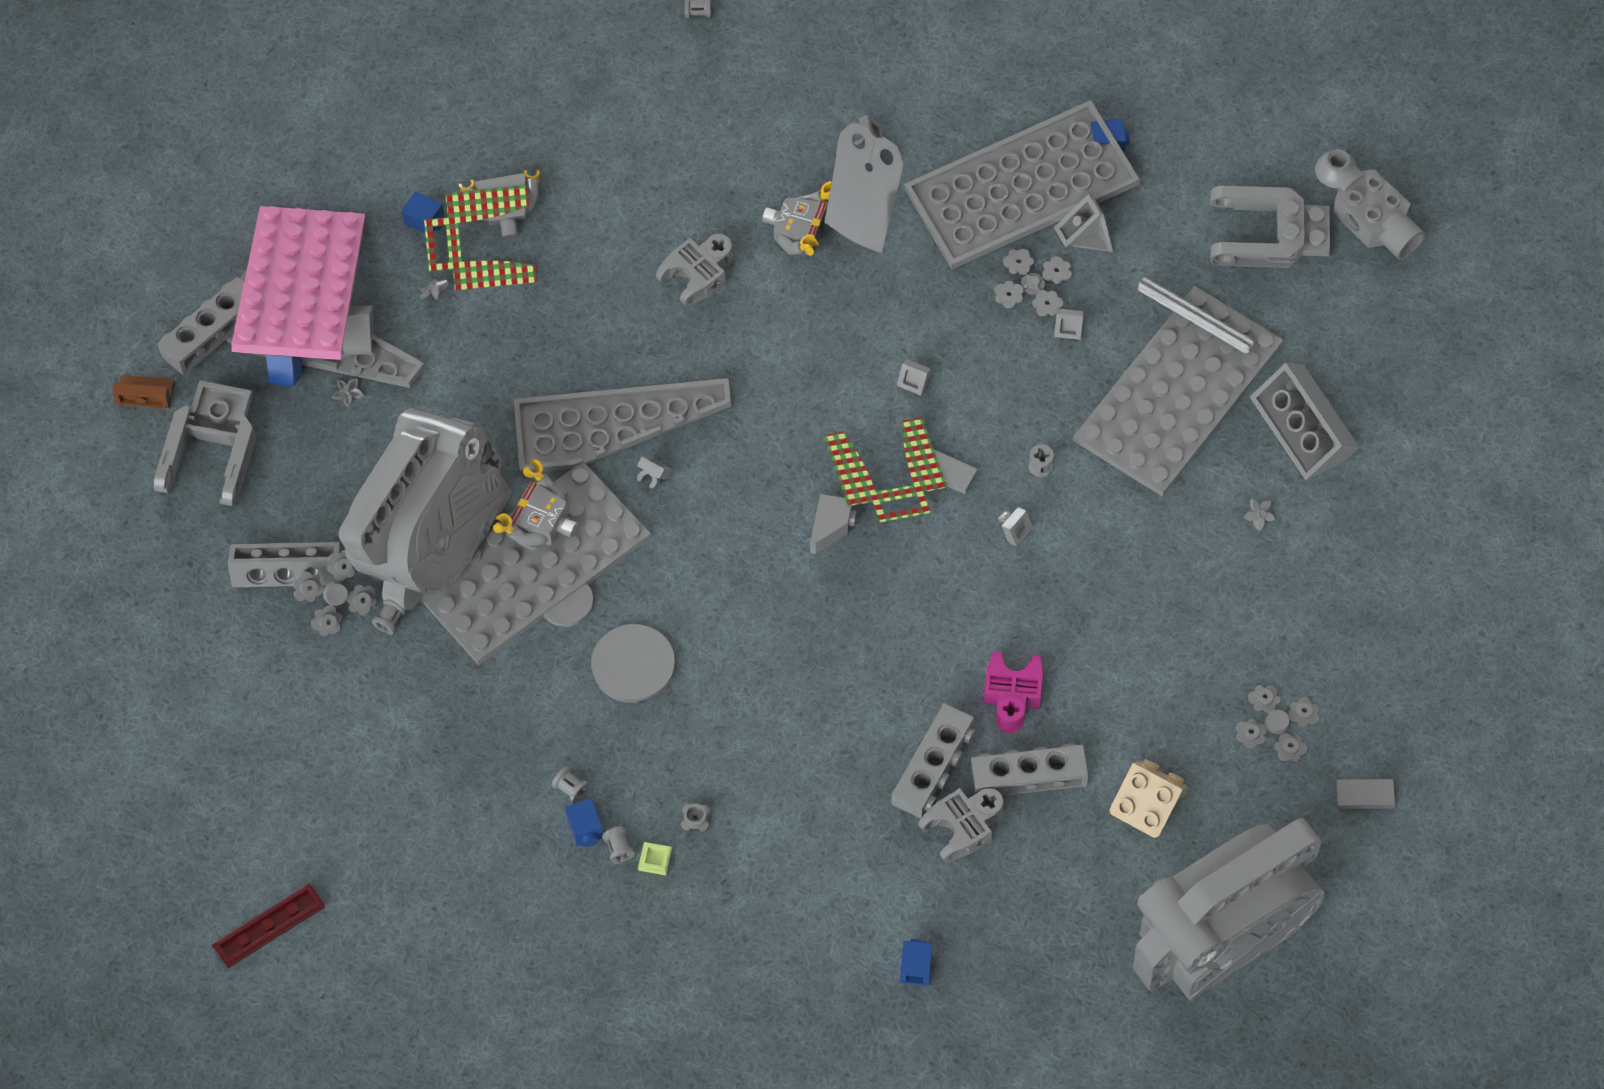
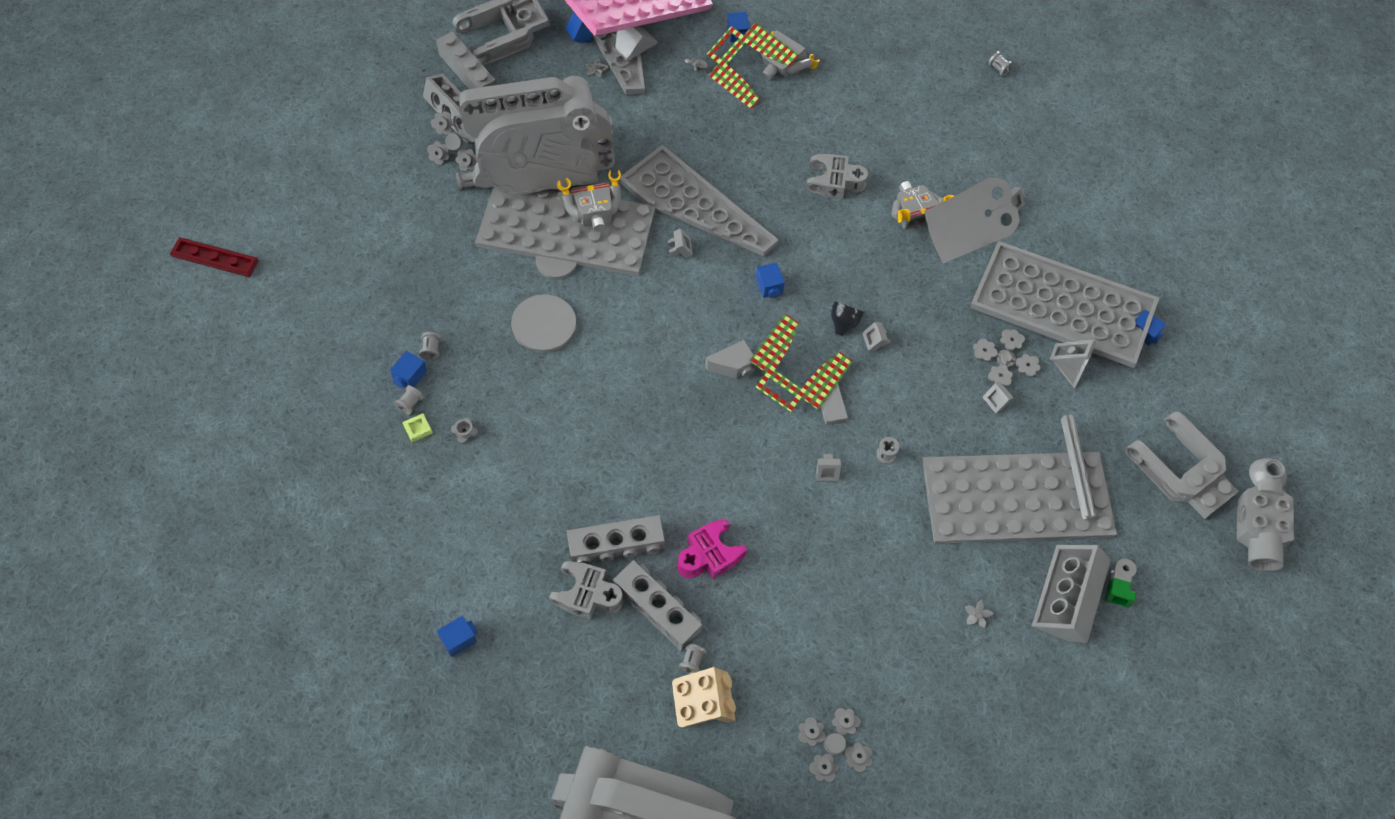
camera: 45 degrees right, 0 degrees up
(234, 516) = (463, 62): none -> light grey brick
(768, 421) = (770, 280): none -> blue brick
(869, 386) = (845, 317): none -> black helmet
(1102, 770) = (692, 658): none -> light grey bush
(1329, 375) = (1120, 583): none -> leg

